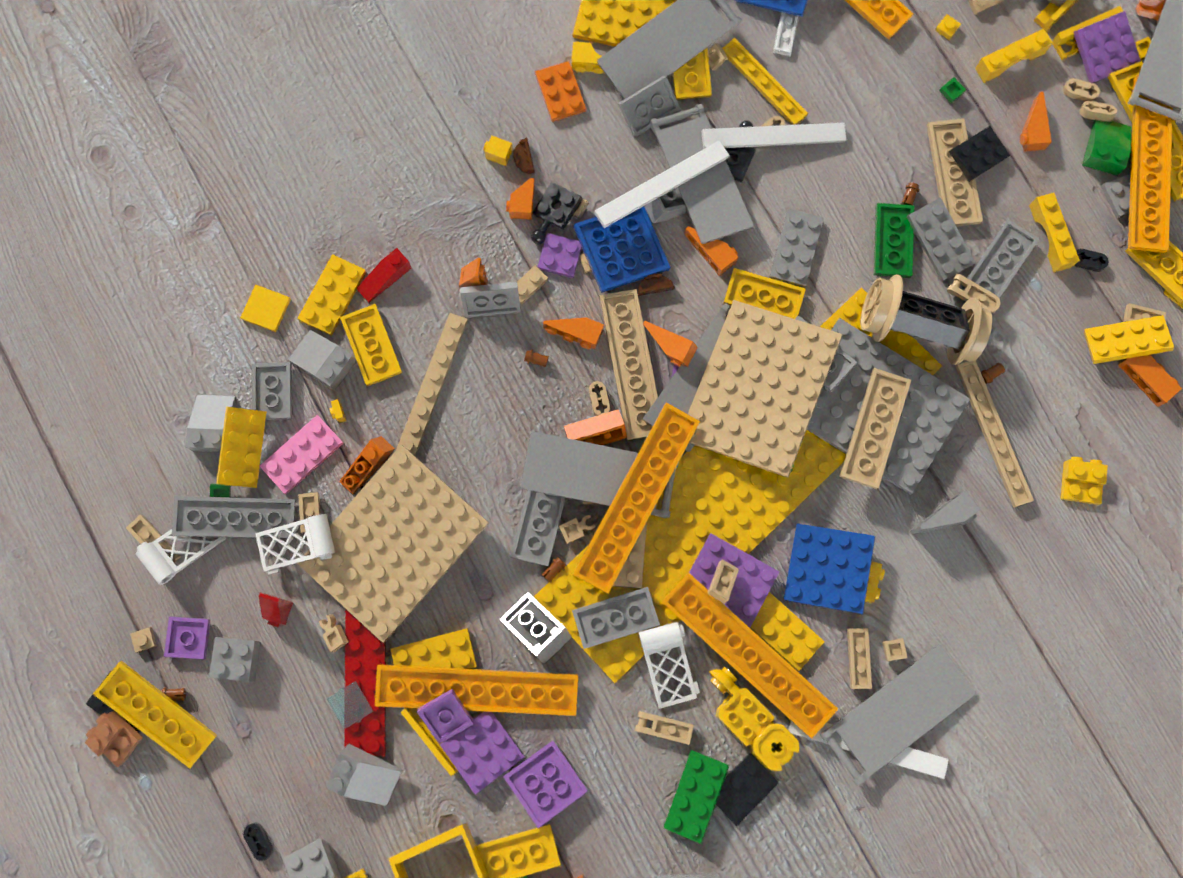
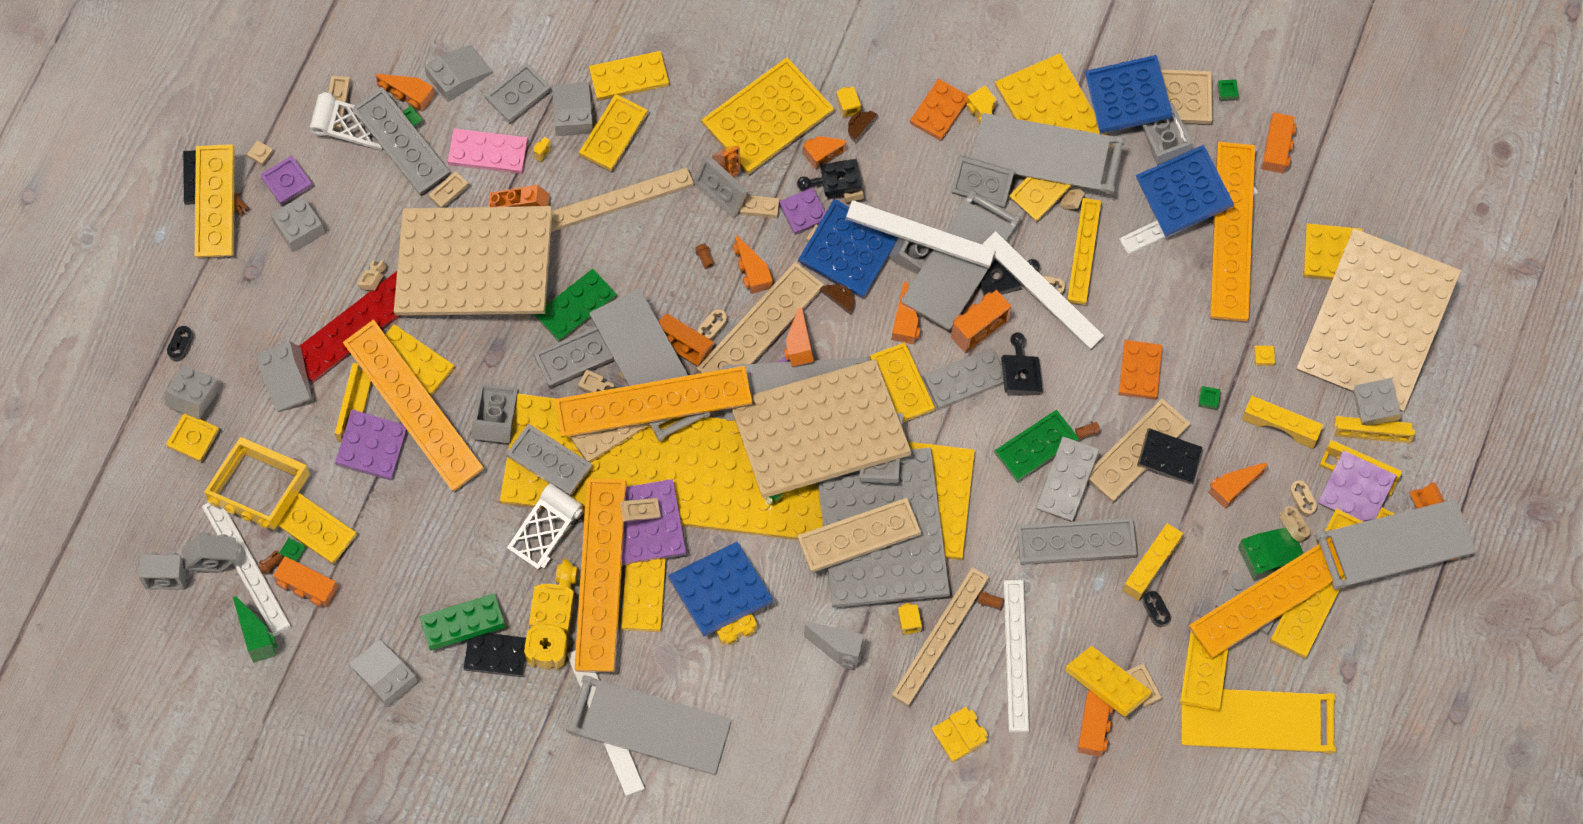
camera: 50 degrees right, 10 degrees down
(113, 738) = (174, 187): nougat plate -> none
(195, 473) = (410, 89): none -> orange slope
(241, 447) = (456, 103): yellow plate -> none
(265, 308) = (578, 38): yellow tile -> none
(274, 609) = (356, 219): red slope -> none
(316, 533) = (432, 203): white piece -> none
(349, 705) = (329, 326): clear light blue piece -> none
(384, 275) = (677, 99): red slope -> none
(445, 716) = (375, 396): medium lavender plate -> none
(457, 217) = (768, 114): none -> yellow plate
(495, 488) = (574, 305): none -> green plate
(545, 784) = (383, 507): medium lavender plate -> none
(554, 569) = (550, 392): dark orange pin -> none
(665, 728) = (495, 562): tan plate -> none
(765, 198) = (980, 321): none -> orange brick
(819, 198) = (1027, 364): none -> black plate
(859, 658) = (668, 665): tan plate -> none
(890, 119) = (1140, 369): none -> orange plate
(894, 649) = (697, 686): tan plate -> none
(959, 329) = (979, 505): brick -> none
(963, 444) = (909, 619): none -> yellow brick
(987, 299) = (1040, 536): tan plate -> none
(1050, 390) = (1016, 656): none -> white tile

